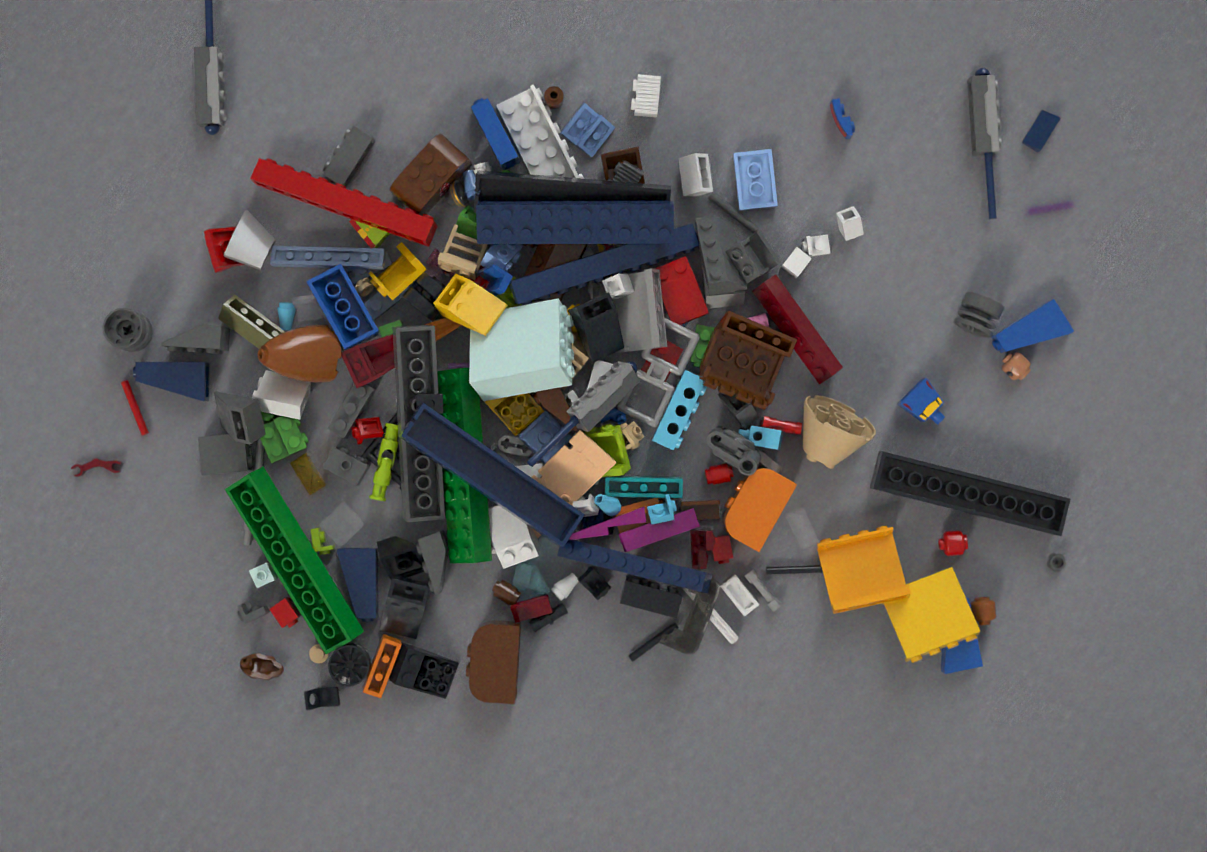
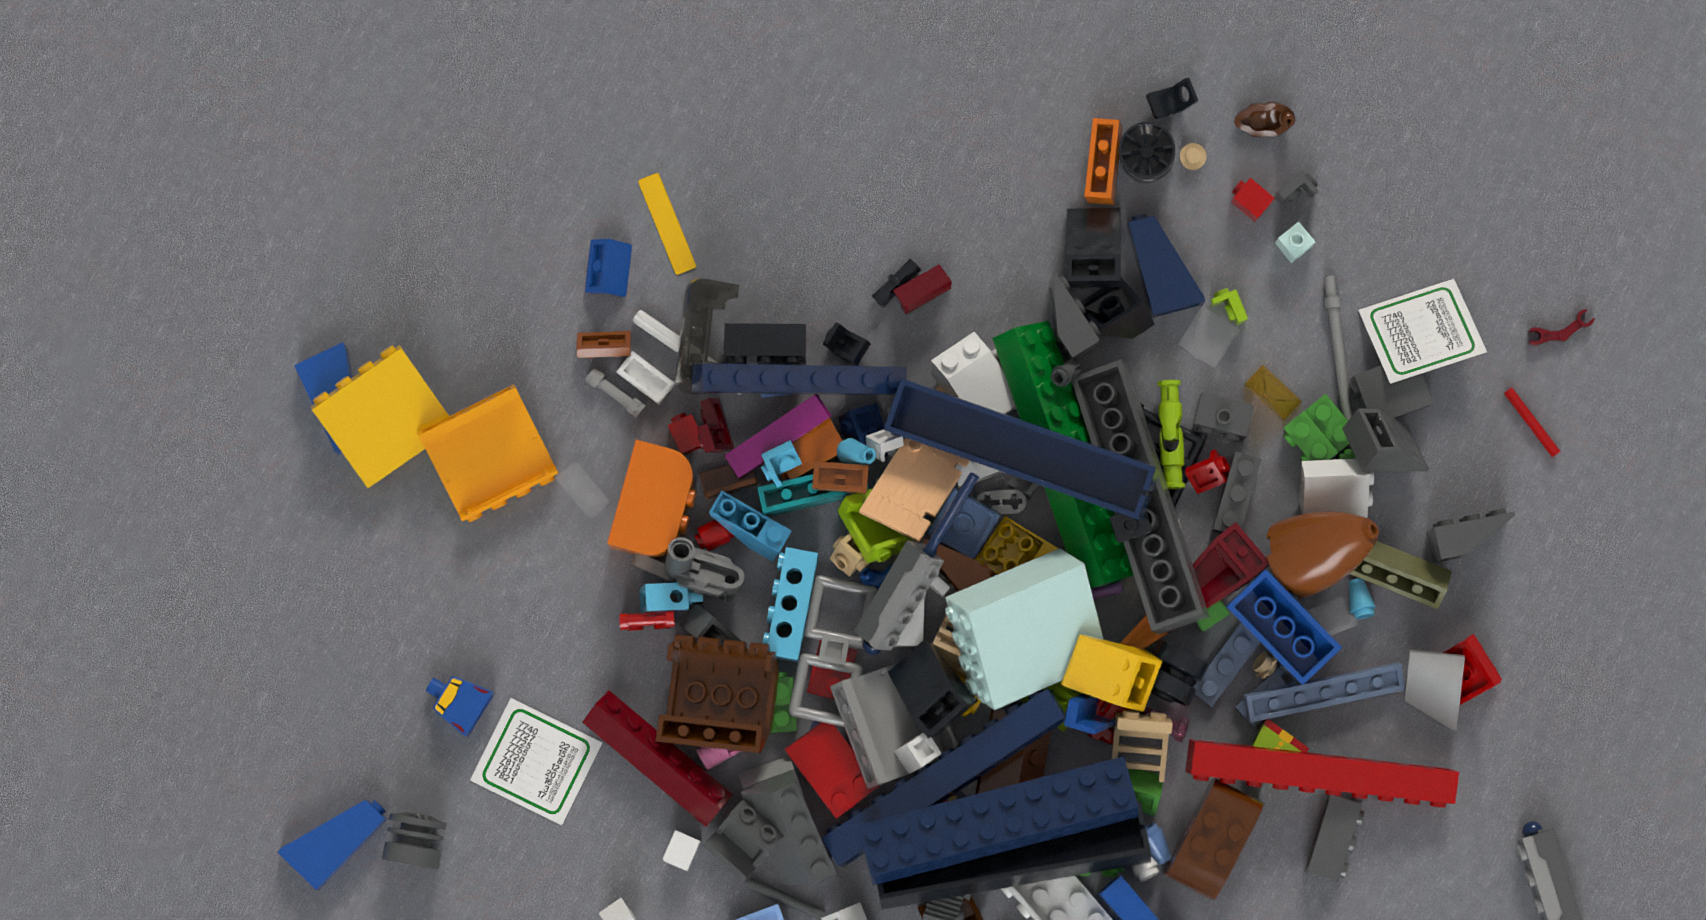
camera: 165 degrees right, 5 degrees down
(118, 324) = (1583, 519): dark grey wheel -> none
(177, 377) = (1482, 477): dark blue slope -> none
(191, 489) = (1422, 331): none -> white sticker
(294, 560) = (1257, 271): green brick -> none
(399, 274) = (1221, 693): yellow panel -> none
(423, 671) = (1046, 168): black slope -> none
(449, 521) = (1063, 374): none -> dark grey pin
(455, 195) = (1172, 824): dark grey piece -> none
(494, 662) = (953, 205): reddish brown brick -> none
(502, 256) = (1087, 749): light blue brick -> none
(506, 592) = (962, 301): reddish brown brick -> none
(530, 577) = (934, 330): clear light blue slope -> none
(565, 586) = (885, 329): white cone -> none
(601, 529) = (855, 417): magenta slope -> none
(623, 489) = (840, 477): none -> dark orange plate
(652, 642) = (747, 285): black bar -> none
(693, 472) = (750, 526): none -> dark azure slope
(697, 700) = (667, 223): none -> yellow sticker
(746, 679) = (608, 267): none -> blue panel
(762, 626) = (603, 344): none -> dark orange plate
(794, 569) = (580, 431): black bar -> none
(816, 245) = (659, 882): white bracket -> none
(832, 430) = (575, 631): tan cone -> none
(879, 350) = (536, 761): none -> white sticker
(953, 543) = (372, 521): red head -> none
(970, 493) = (366, 594): black brick -> none
(983, 610) = (310, 441): dark orange head -> none
(1016, 366) = (344, 785): nougat head -> none
(1061, 562) = (224, 524): dark grey plate -> none

